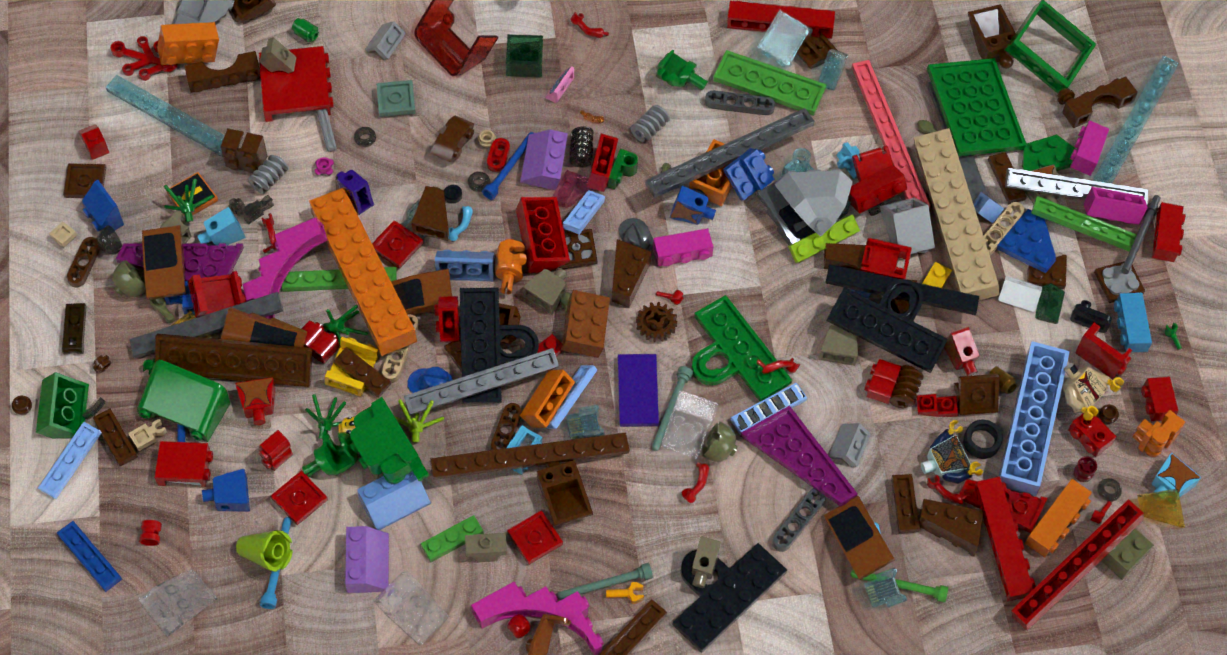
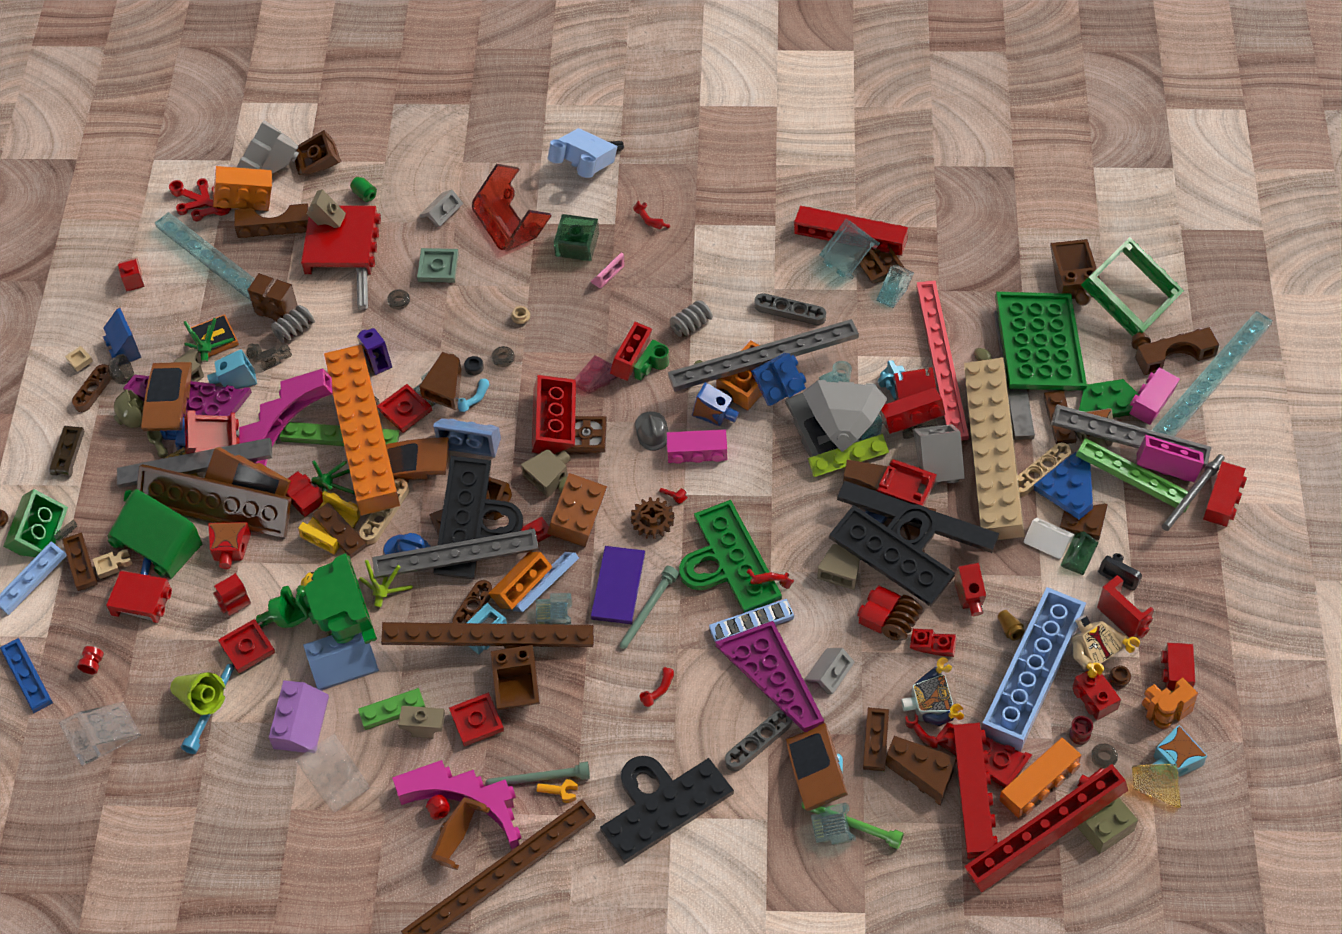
camera: 15 degrees right, 5 degrees down
(81, 178) = (107, 305): reddish brown tile -> none
(101, 363) = (84, 488): reddish brown plate -> none
(229, 492) = (178, 630): blue torso -> none
(268, 223) = (282, 372): red piece -> none
(320, 163) = (351, 323): dark pink plate -> none
(325, 423) = (290, 576): green plant -> none
(448, 322) = (435, 485): red brick -> none
(450, 143) = (486, 309): reddish brown brick -> none
(491, 190) = (513, 366): blue piece -> none
(498, 156) = (526, 333): red plate -> none
(509, 263) = (511, 438): orange piece -> none
(544, 159) = (573, 341): medium lavender slope -> none
(581, 146) = (614, 332): clear smoke piece -> none
(583, 212) = (601, 398): light blue plate -> none
(589, 117) = (635, 308): clear orange piece -> none
(629, 272) = (634, 464): reddish brown wedge -> none
(678, 71) = (731, 270): green piece -> none
(689, 424) = (663, 625): clear slope -> none
(707, 554) = (645, 766): dark tan torso -> none
(720, 443) = (690, 650): olive cylinder -> none
(769, 81) = (826, 291): bright green plate -> none
(937, 275) = (962, 508): yellow plate -> none
(977, 394) = (978, 635): reddish brown bracket -> none
(984, 425) = (970, 697): black tyre -> none
(987, 207) = (1030, 444): medium blue panel -> none
(1115, 282) = (1160, 543): light grey piece -> none
(1133, 322) = (1165, 583): dark azure brick -> none
(1172, 333) = (1208, 600): green hand -> none

